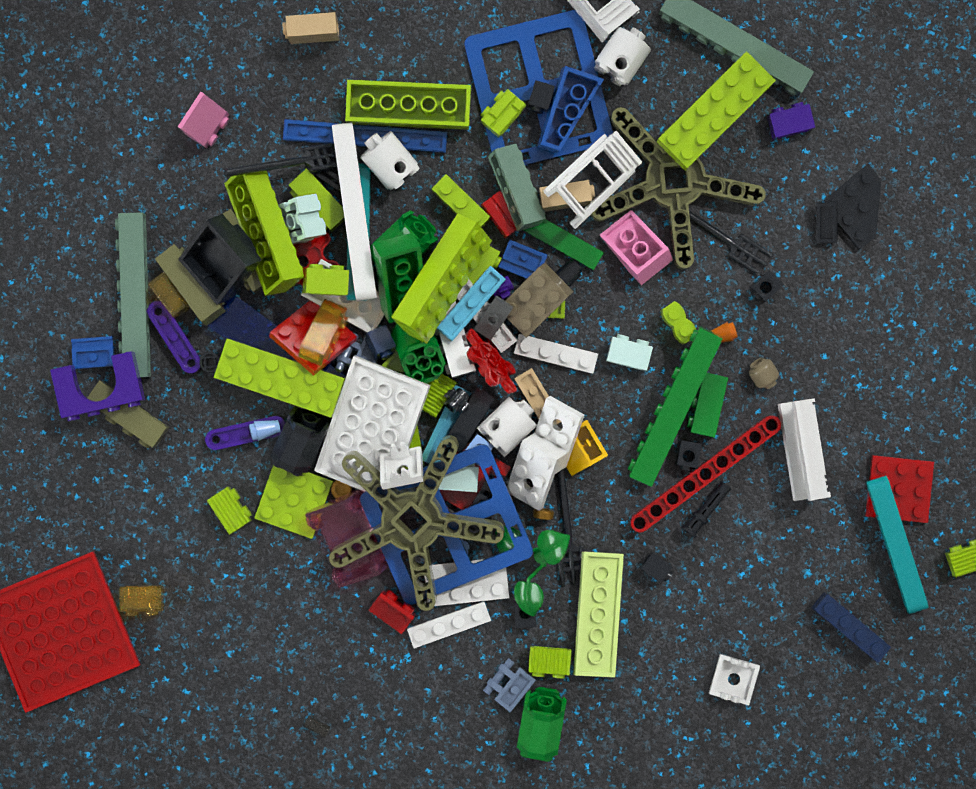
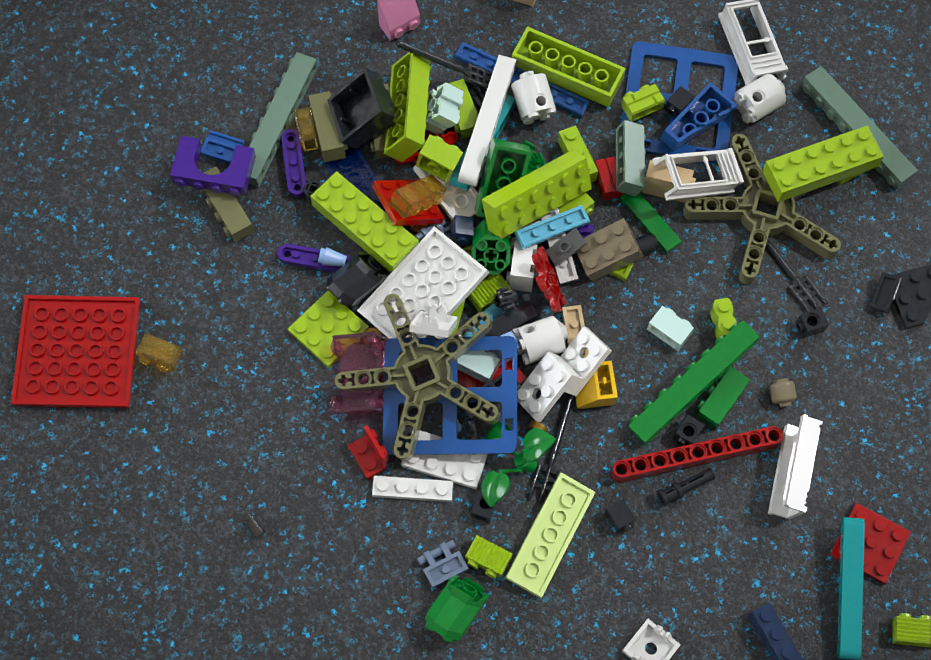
camera: 25 degrees right, 20 degrees down
(229, 510) = (269, 312): lime brick -> none
(521, 259) = (606, 215): blue plate -> none
(555, 353) = (606, 304): white plate -> none
(637, 247) = (712, 248): bright pink slope -> none
(727, 332) = (762, 347): orange cone -> none
(790, 121) = (883, 203): dark purple brick -> none

